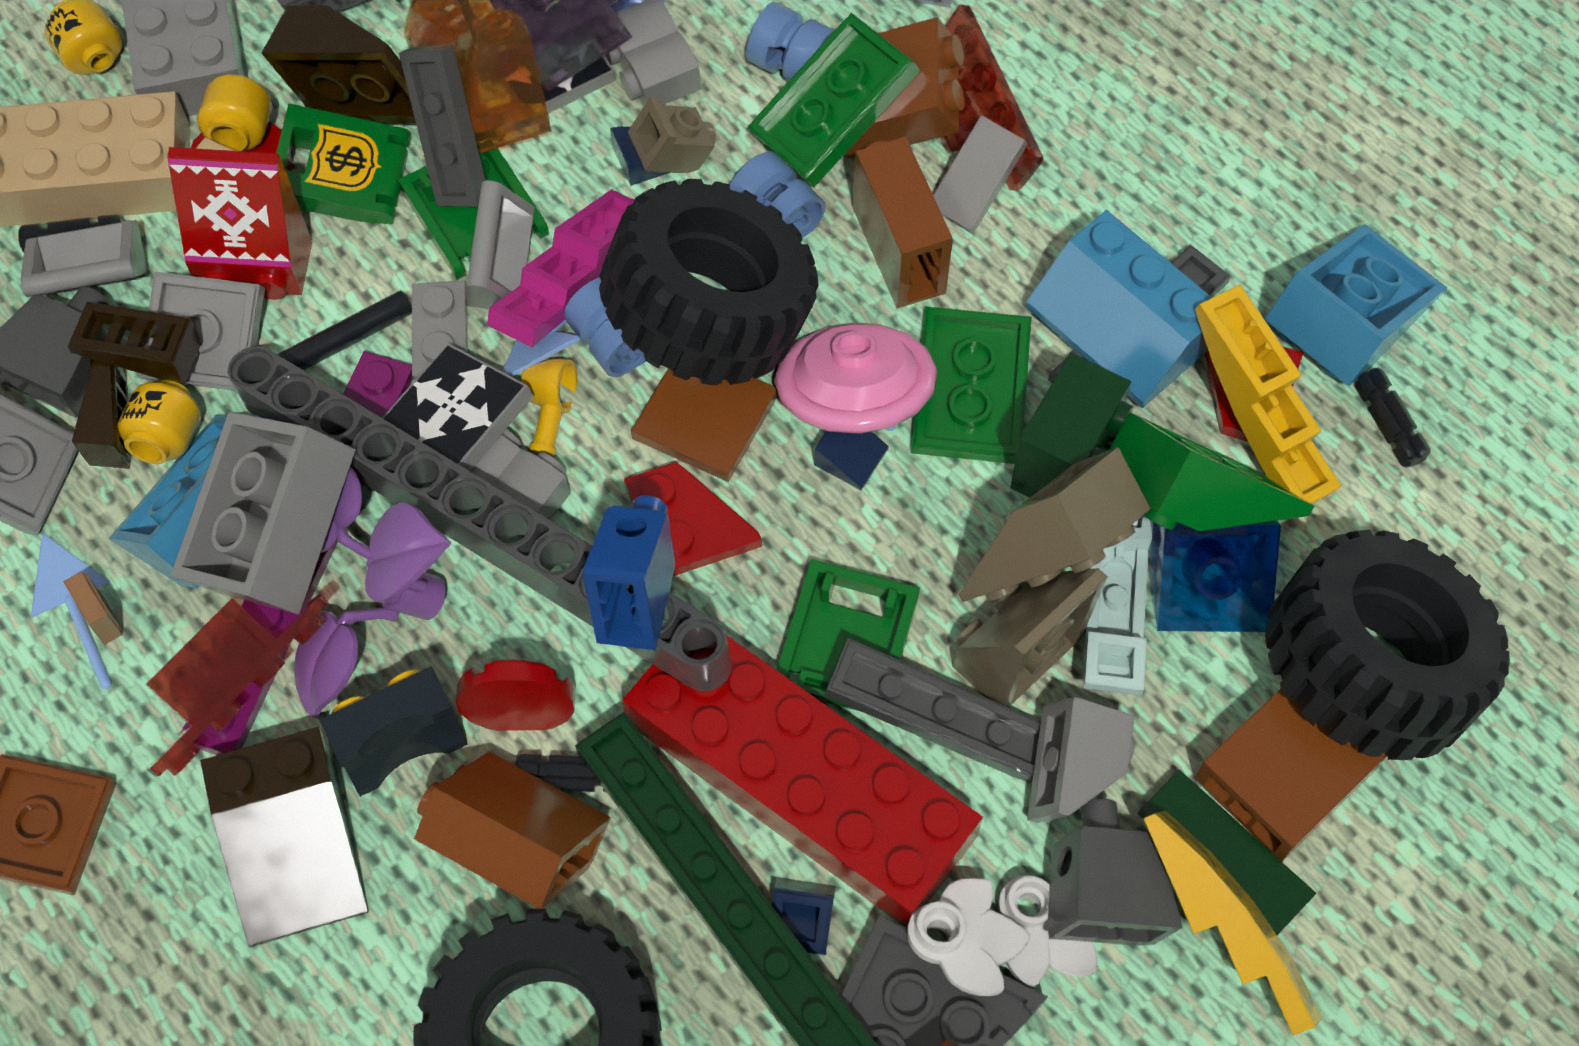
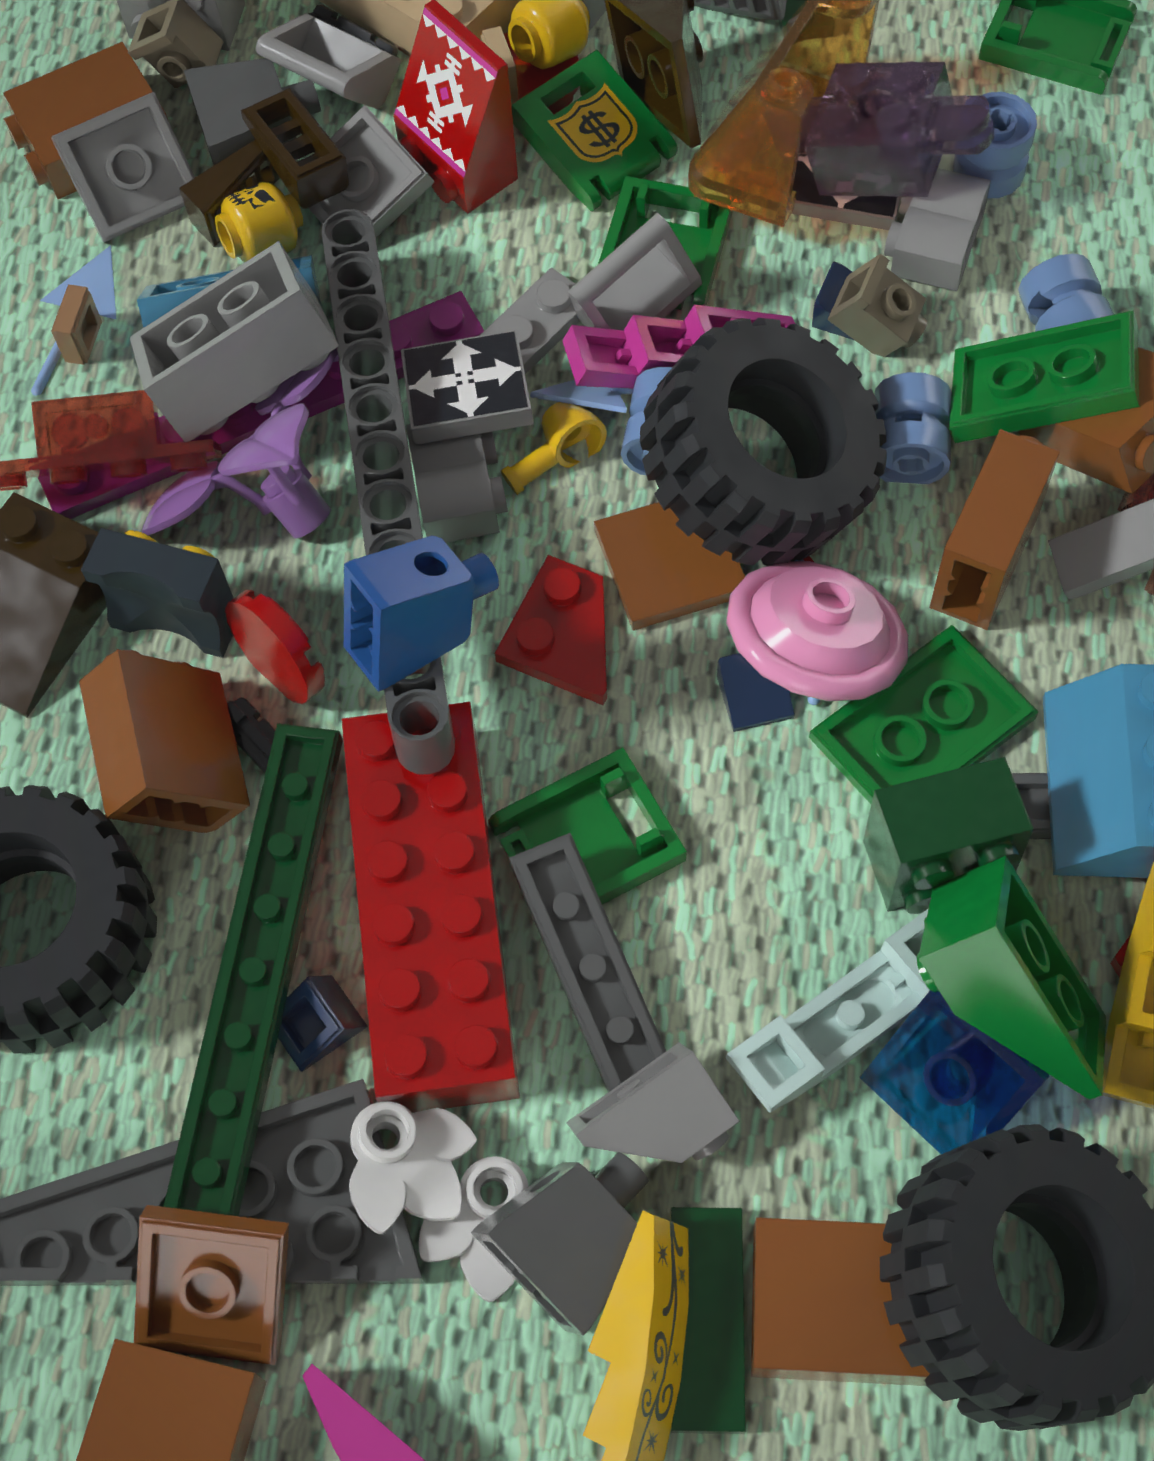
camera: 50 degrees right, 0 degrees up
(348, 331) = (456, 266): black piece -> none
(443, 124) = (686, 143): dark grey plate -> none
(1027, 634) = (720, 970): dark tan slope -> none
(1061, 527) = (828, 894): dark tan slope -> none

